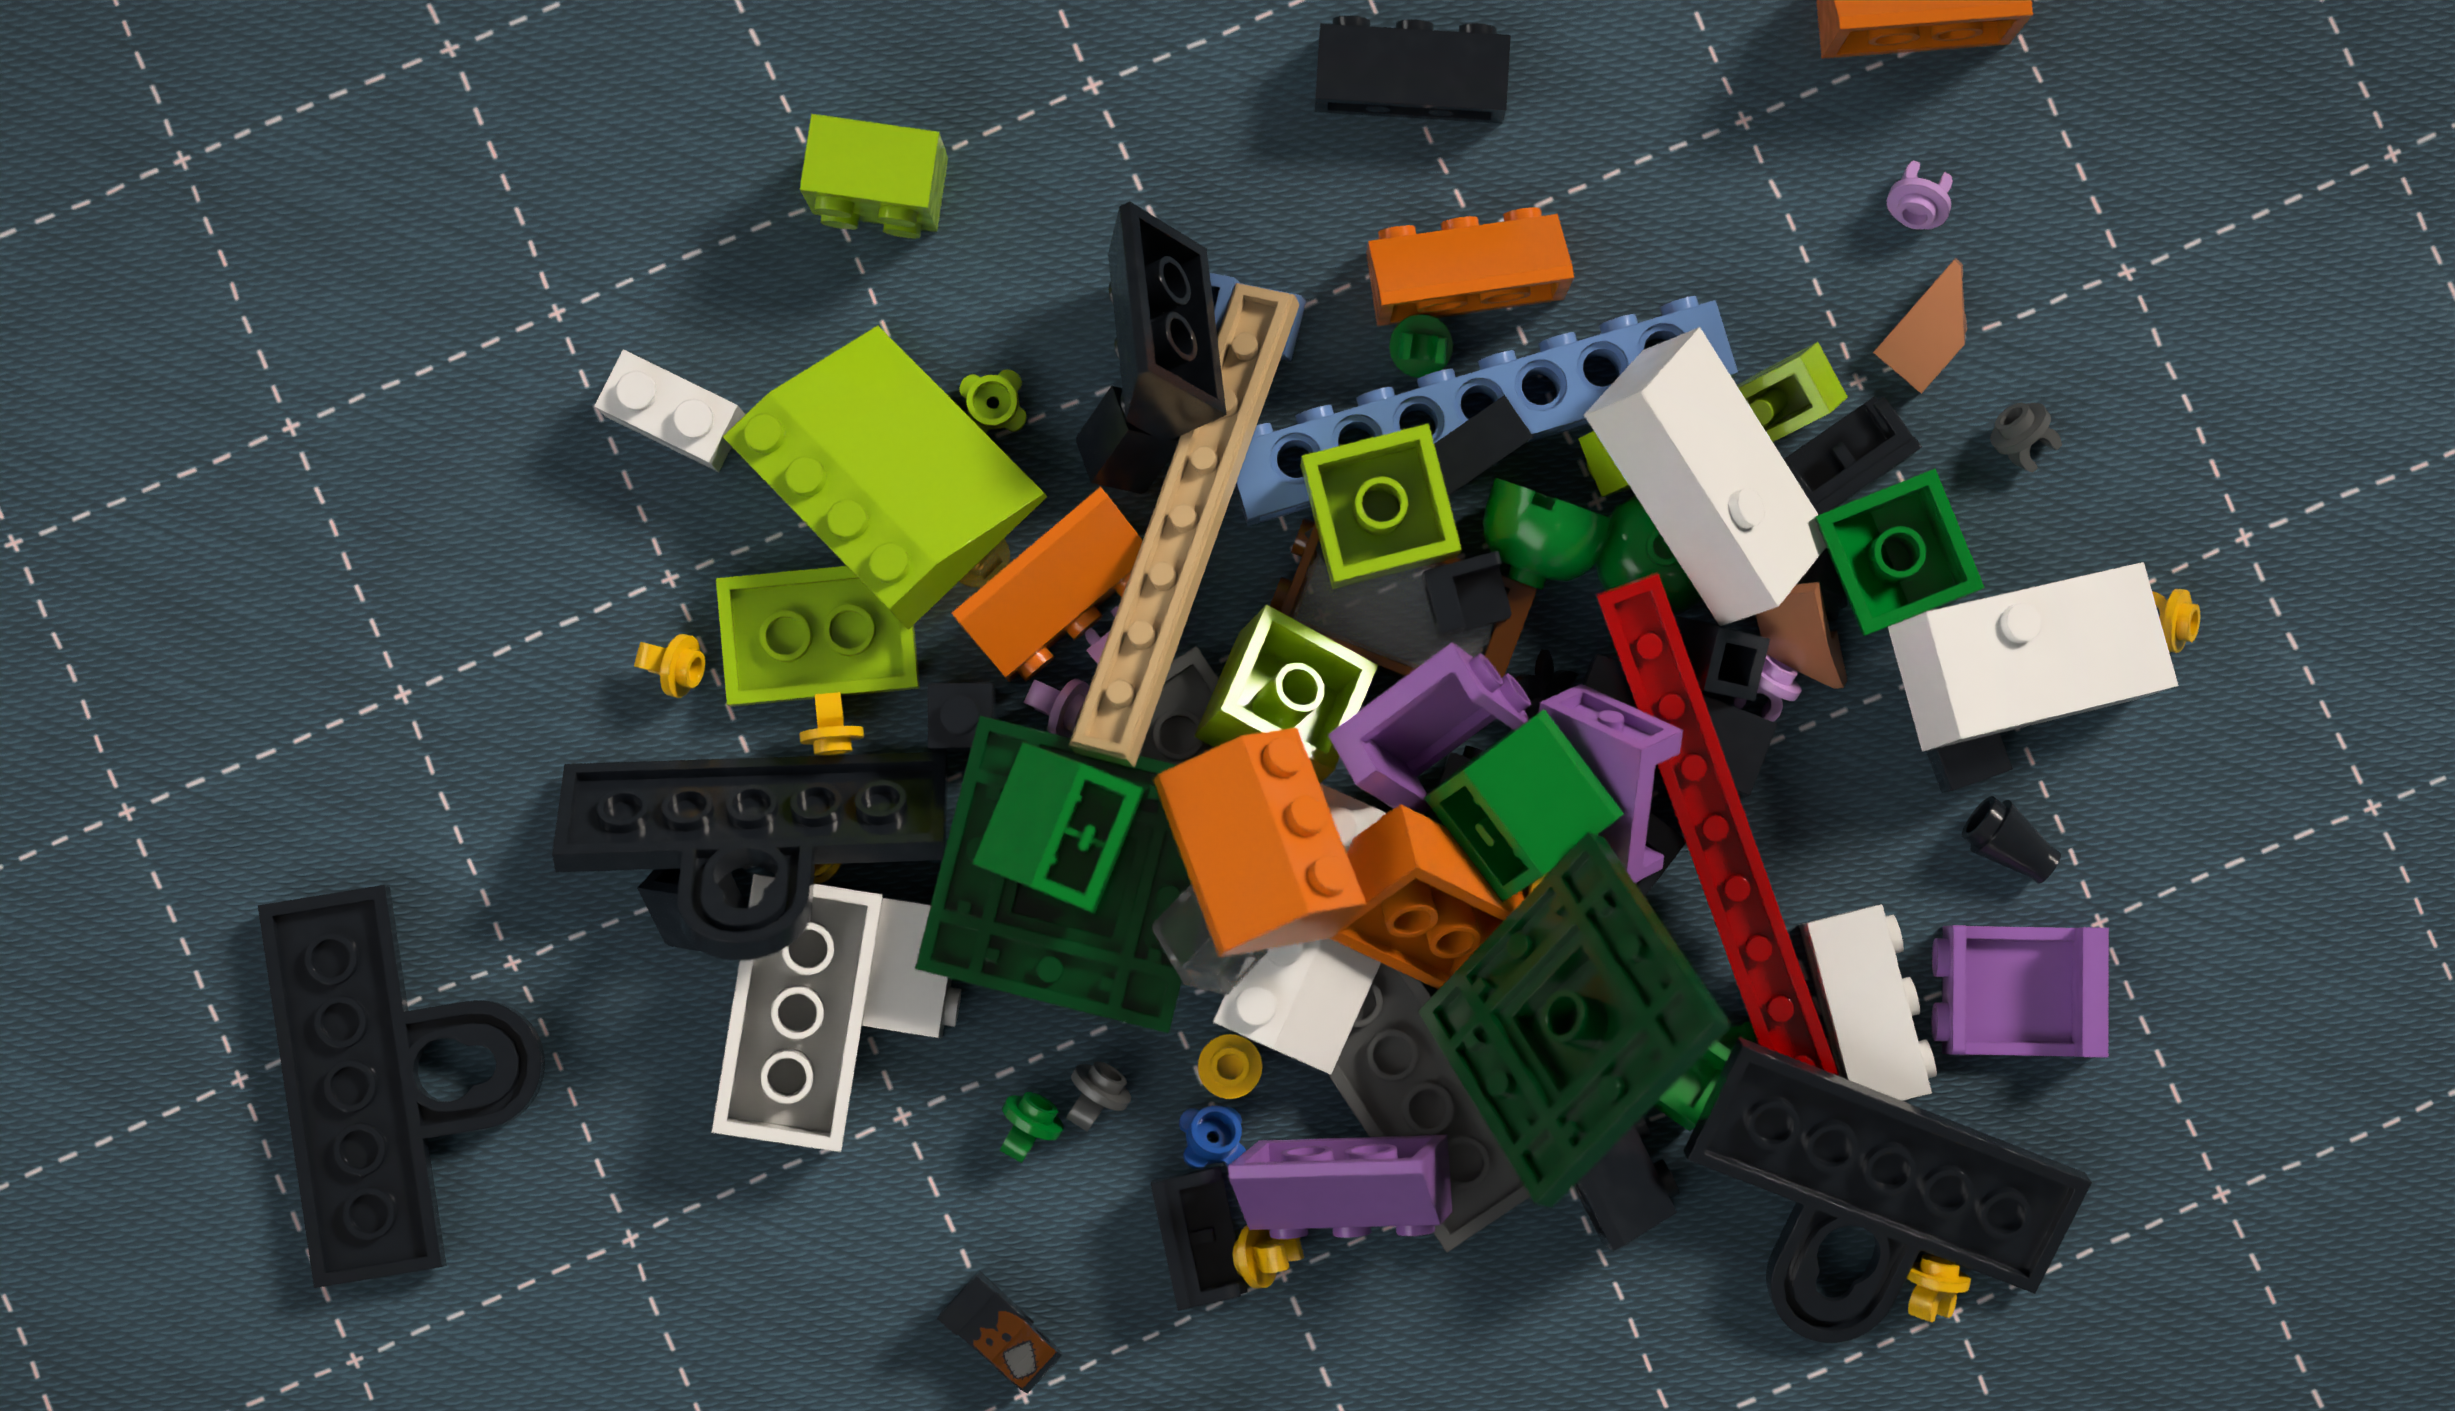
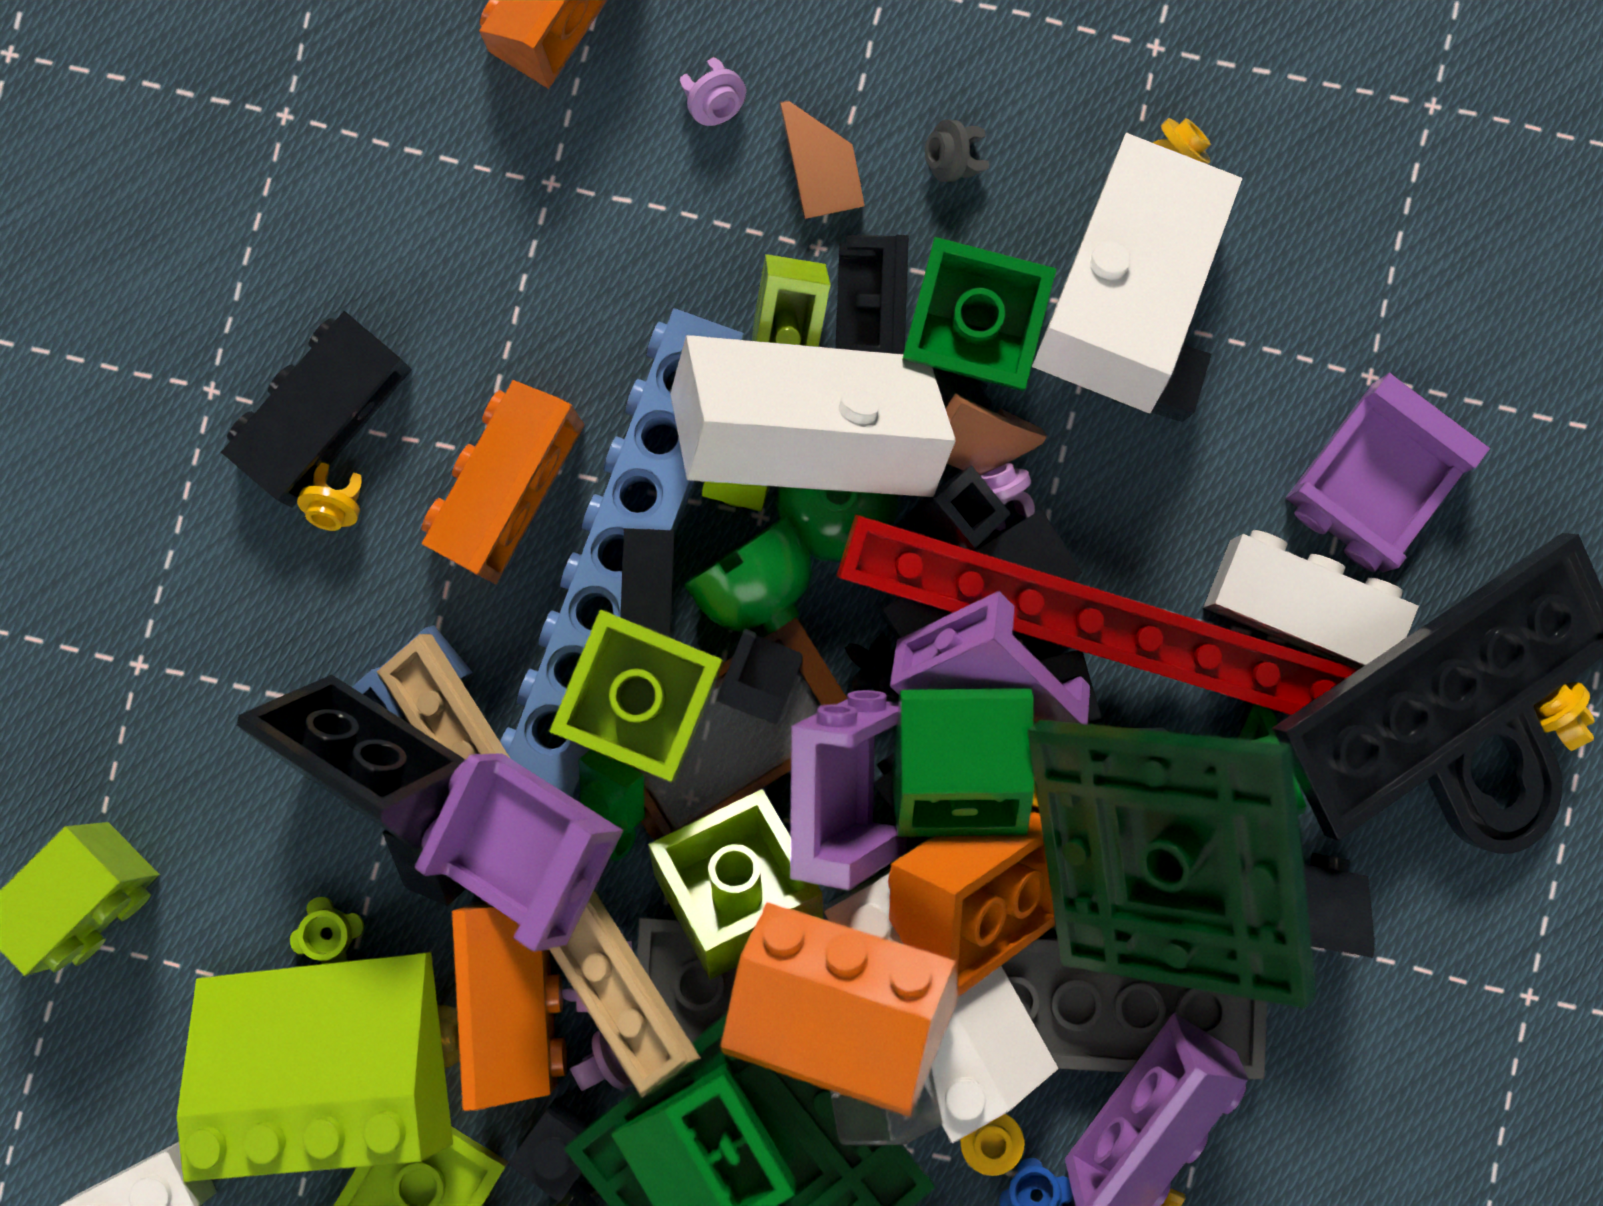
camera: 55 degrees left, 0 degrees up
(1190, 501) = (519, 847): none -> medium lavender panel
(1282, 551) = (613, 793): none -> green plate
(1339, 141) = (330, 507): none -> yellow plate
(1420, 345) = (536, 562): green plate -> none
(2008, 838) = (1258, 397): black cone -> none

